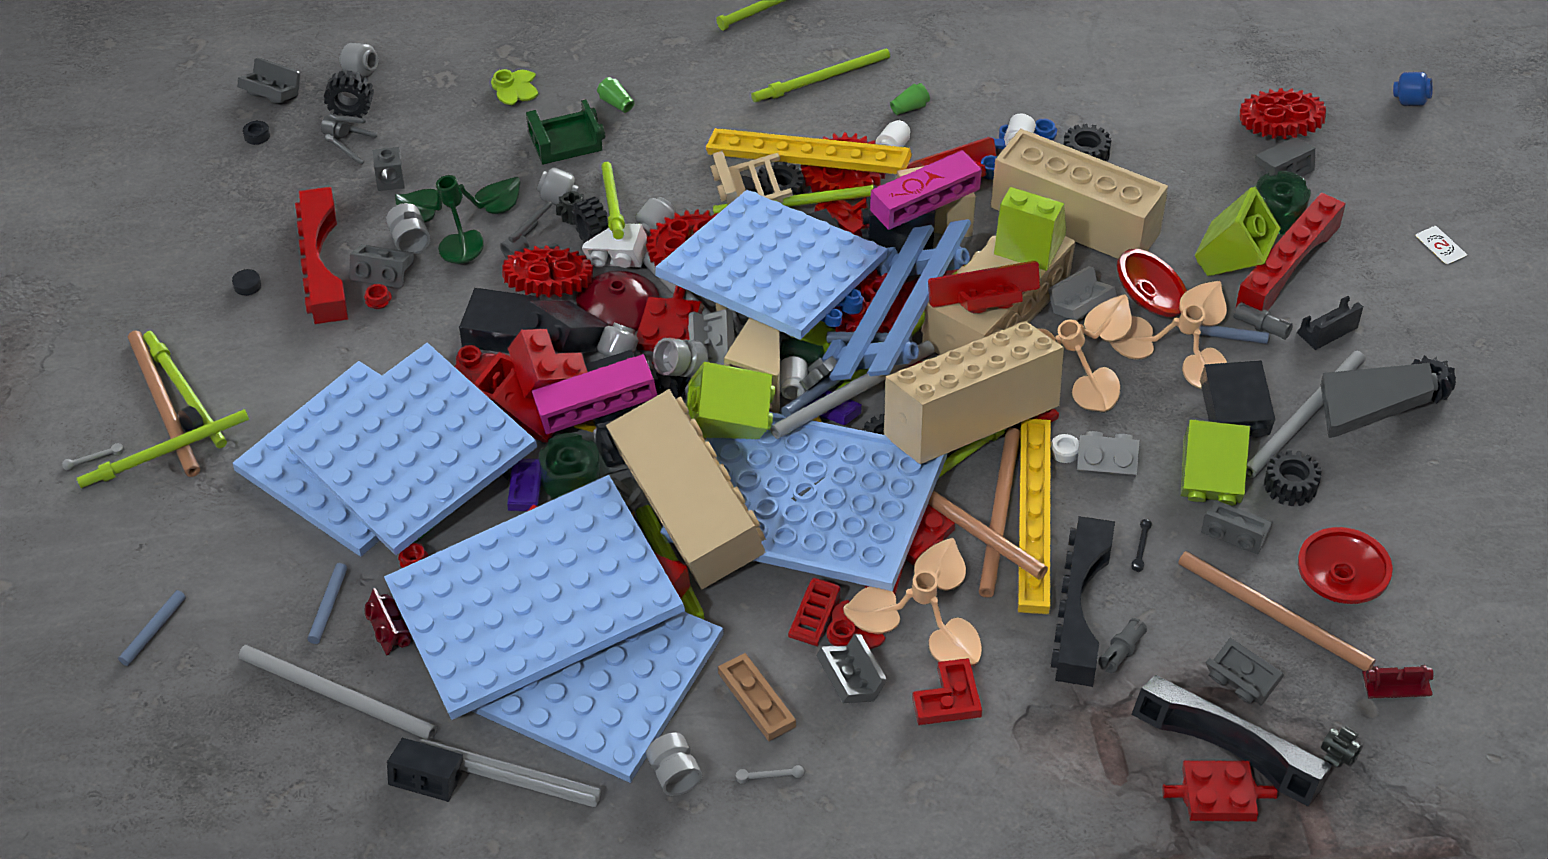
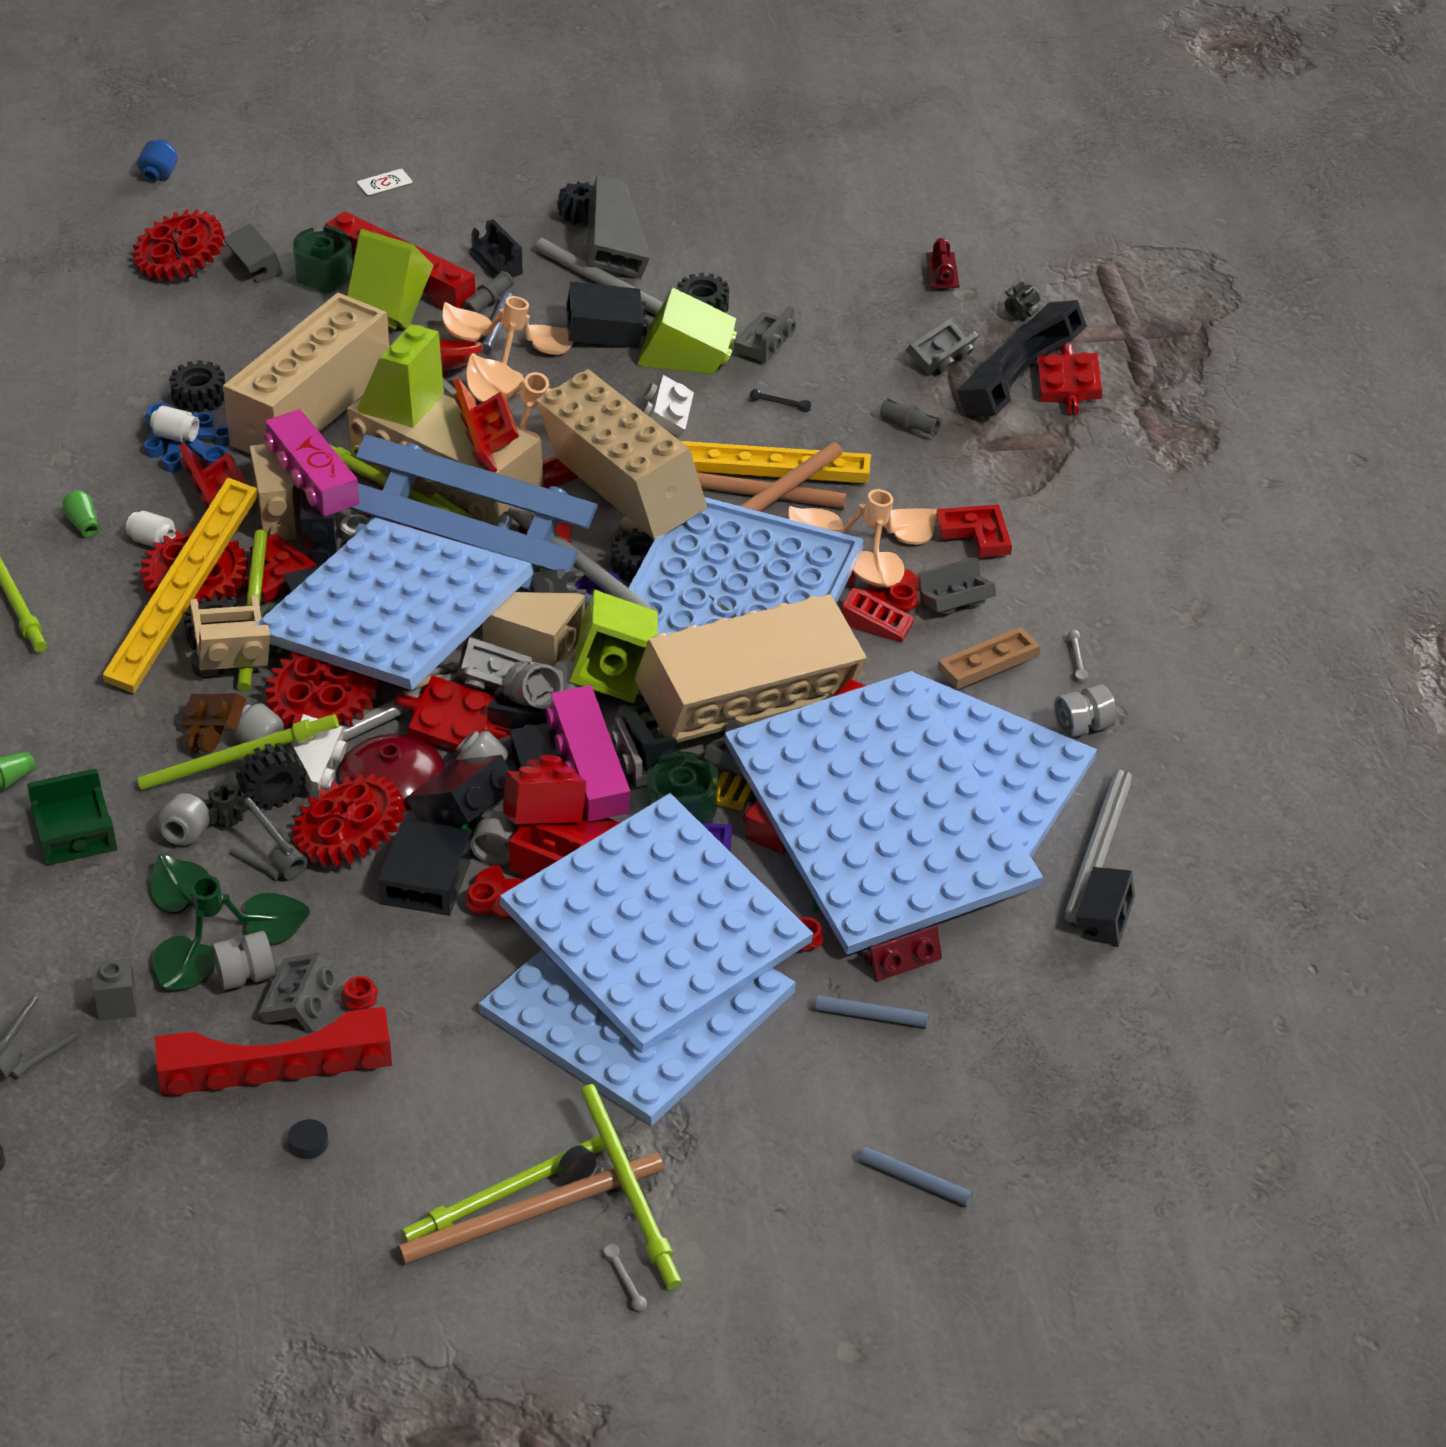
camera: 90 degrees left, 5 degrees down
(338, 692) = (1001, 995): light grey piece -> none
(661, 186) = (207, 717): none -> reddish brown hinge
(1078, 646) = (914, 443): black arch -> none
(1277, 612) = (861, 328): nougat piece -> none
(1345, 565) = (822, 271): red dish -> none

